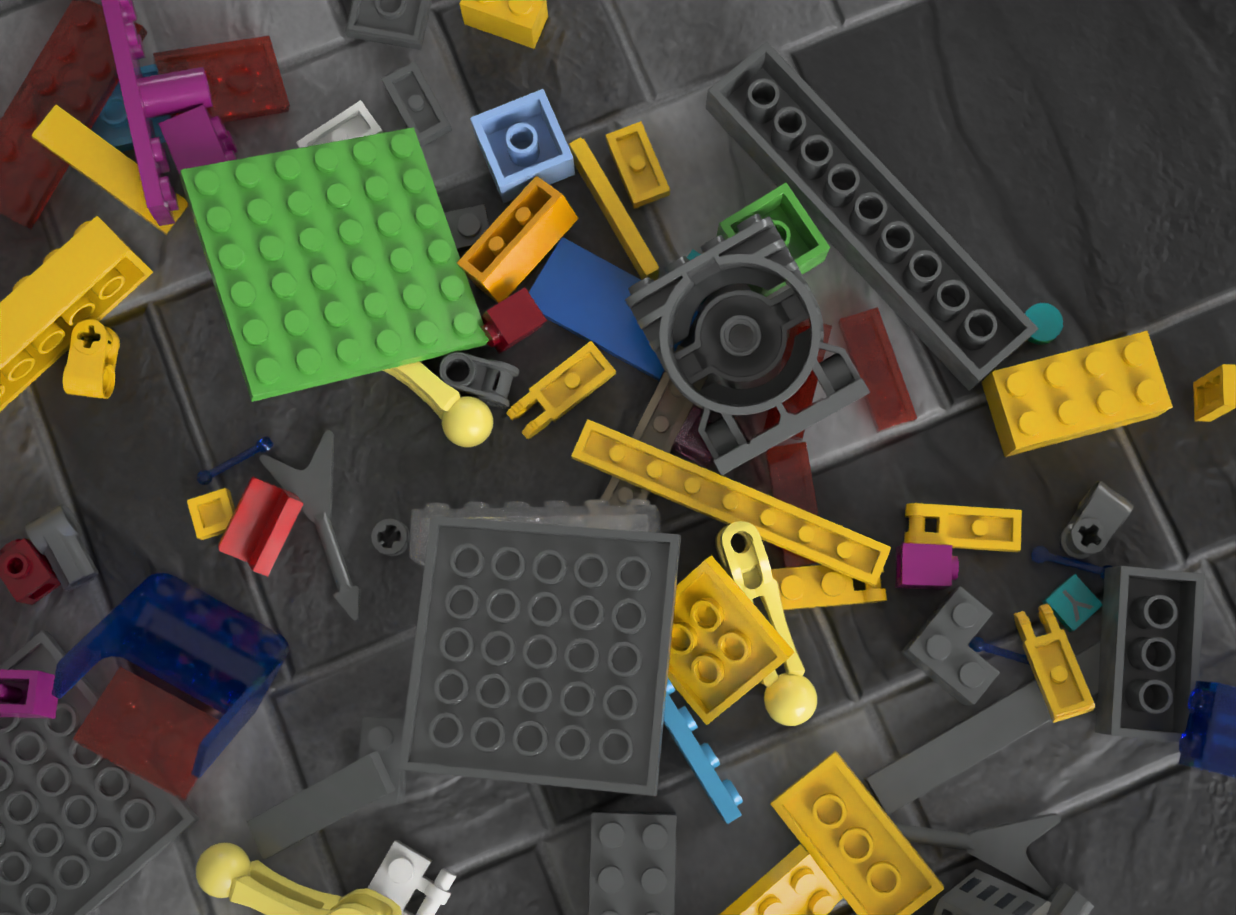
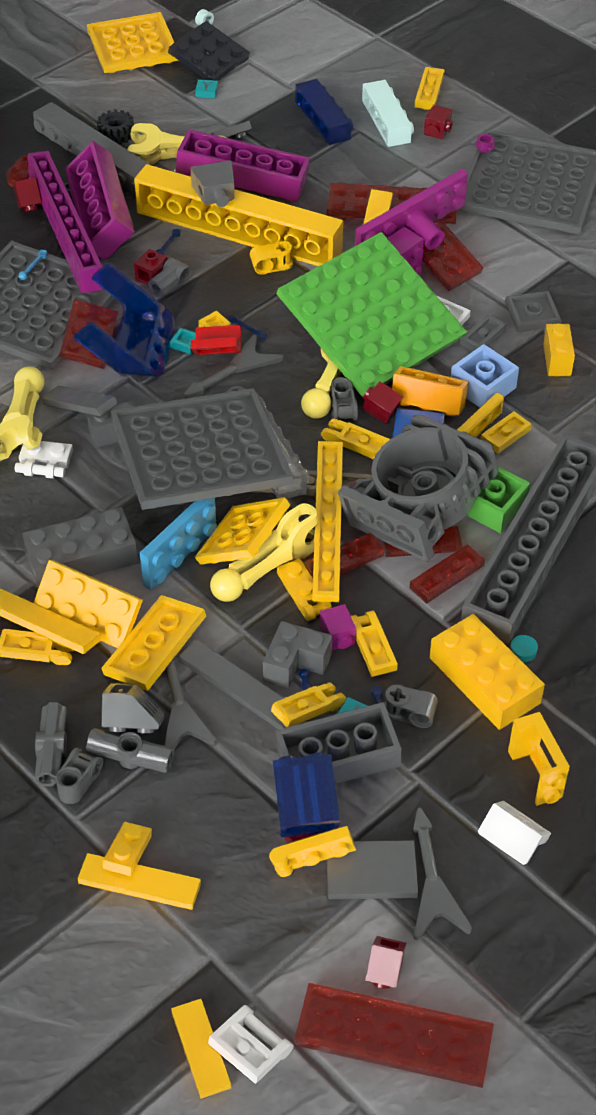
camera: 65 degrees right, 30 degrees down
(223, 575) = (182, 340): none -> teal tile

